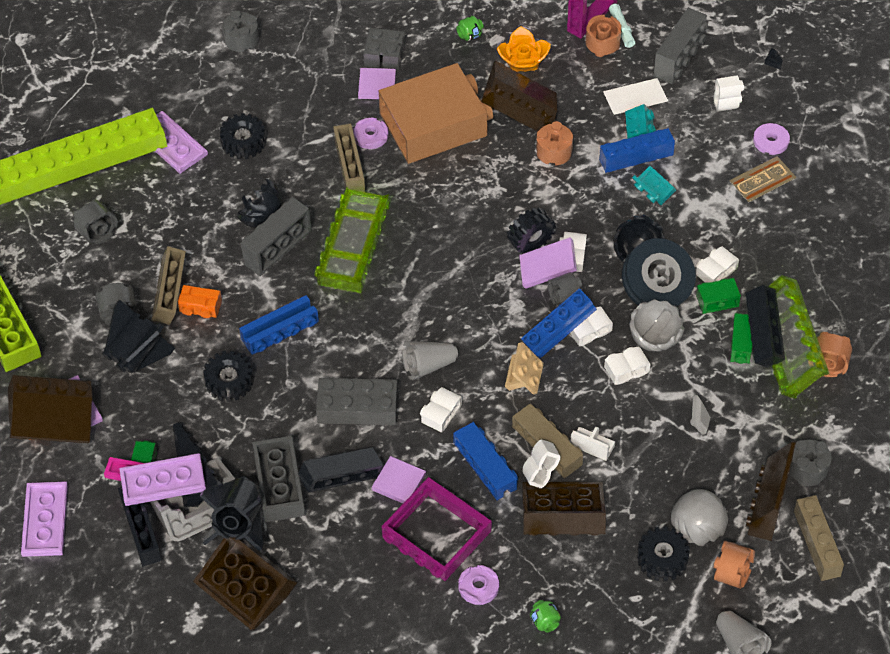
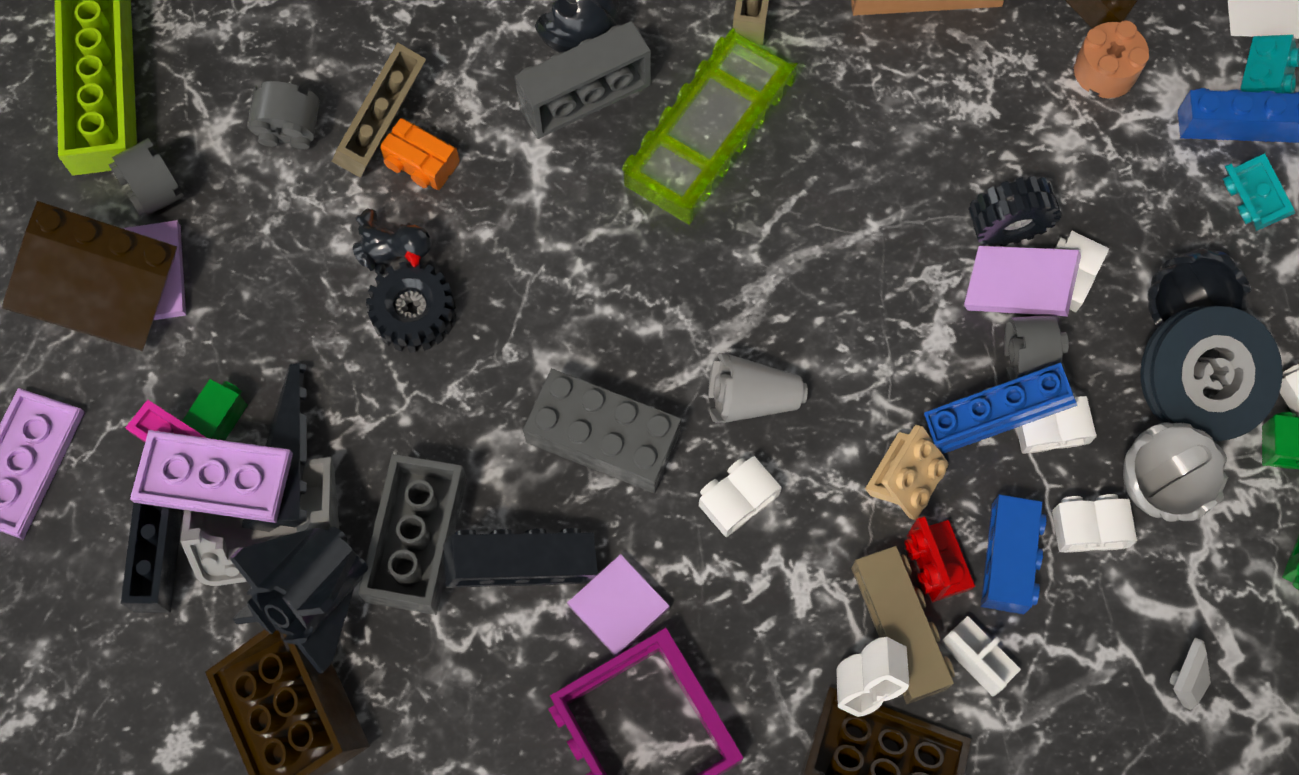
camera: 20 degrees right, 15 degrees up
(53, 356) = (147, 177): none -> dark grey brick
(134, 341) = (278, 194): black brick -> none
(200, 350) = (383, 246): none -> black animal
(278, 325) = (529, 241): blue brick -> none
(485, 460) = (779, 625): blue brick -> none
(554, 405) = (938, 559): none -> red bracket
(591, 391) = (1013, 555): none -> blue brick

